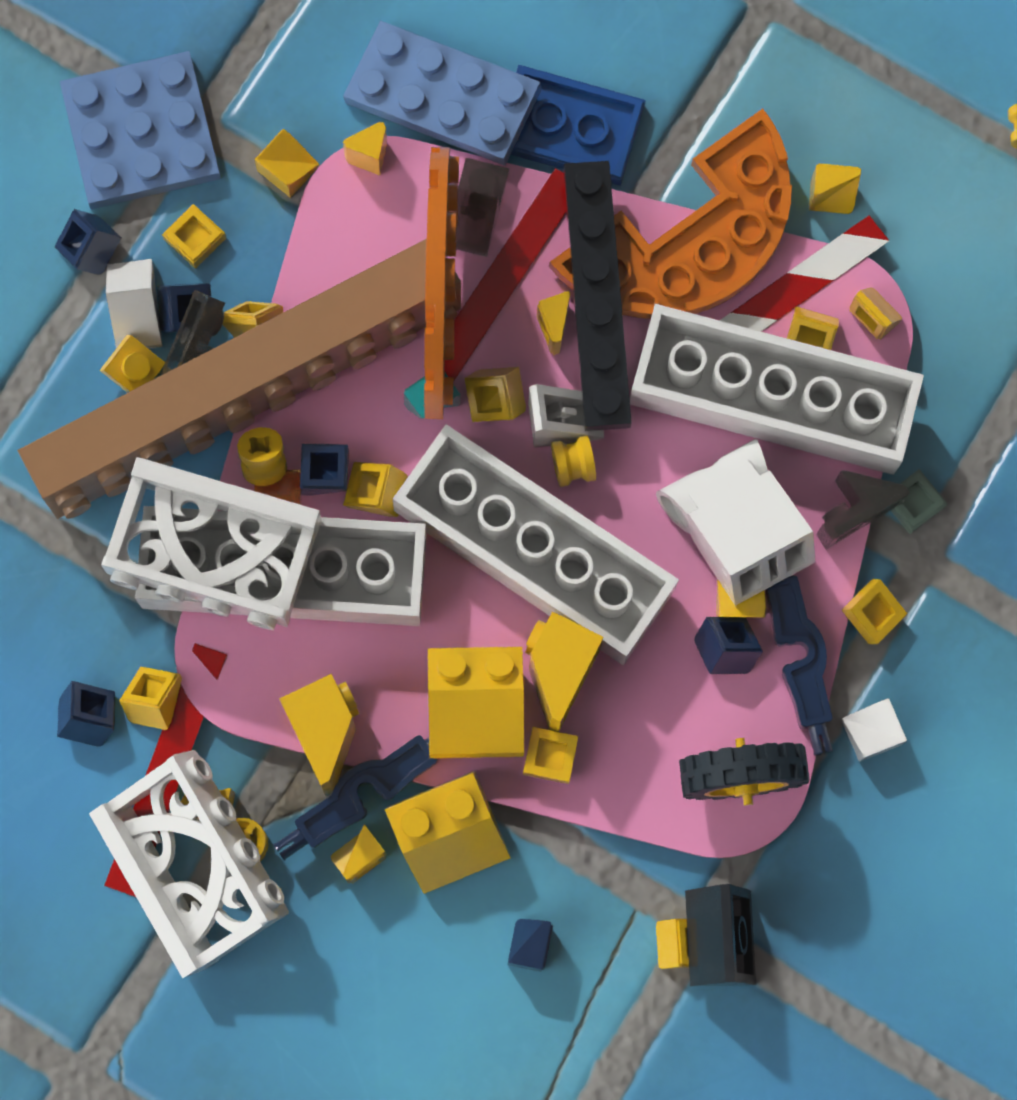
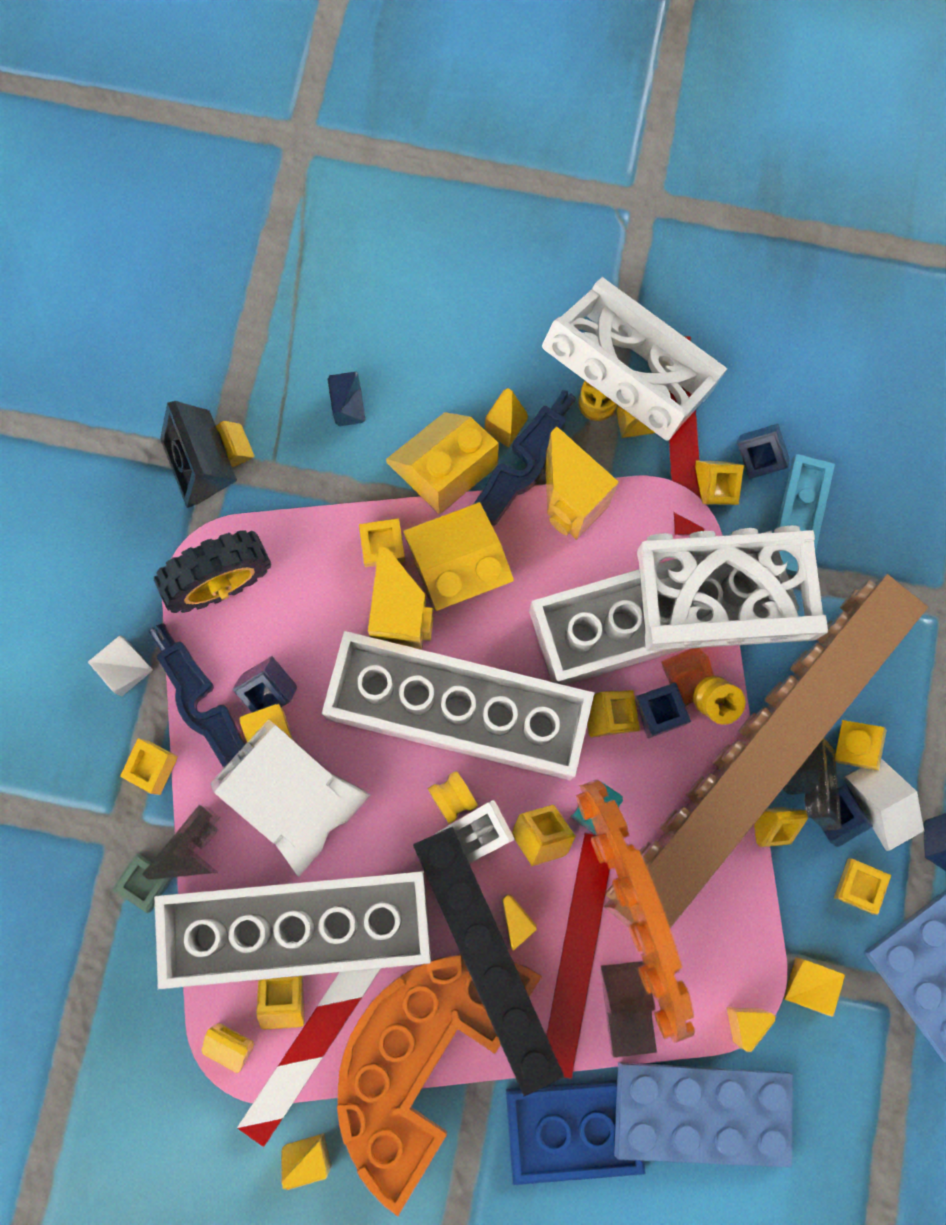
camera: 160 degrees right, 0 degrees up
(76, 629) = (805, 500): none -> medium azure plate

